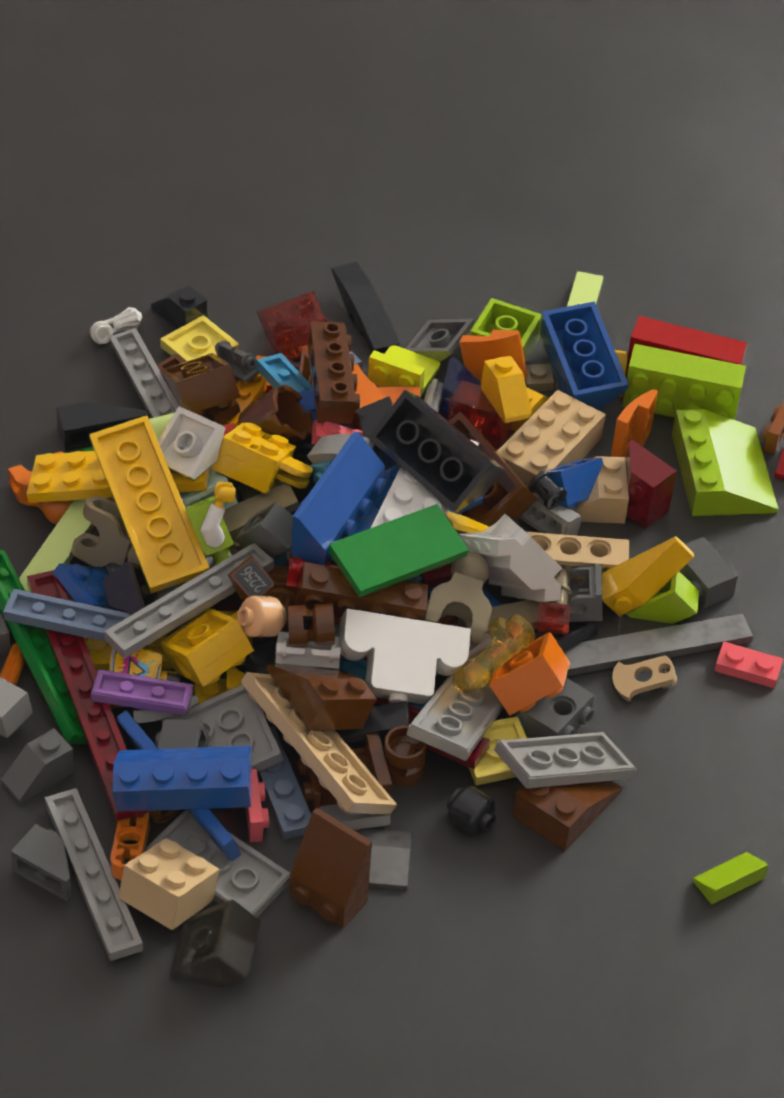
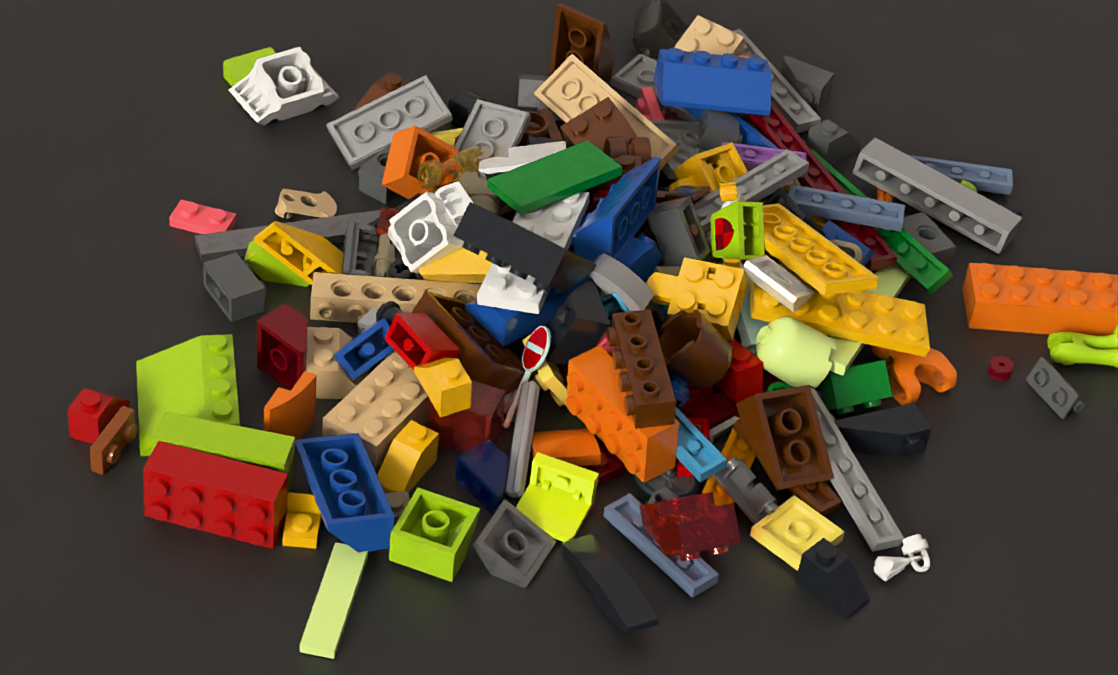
camera: 175 degrees right, 5 degrees down
(262, 616) = (674, 166): light nougat head -> none
(482, 348) = (454, 477): orange slope -> none
(523, 446) = (419, 339): none -> red brick
(687, 830) = (282, 87): none -> white slope

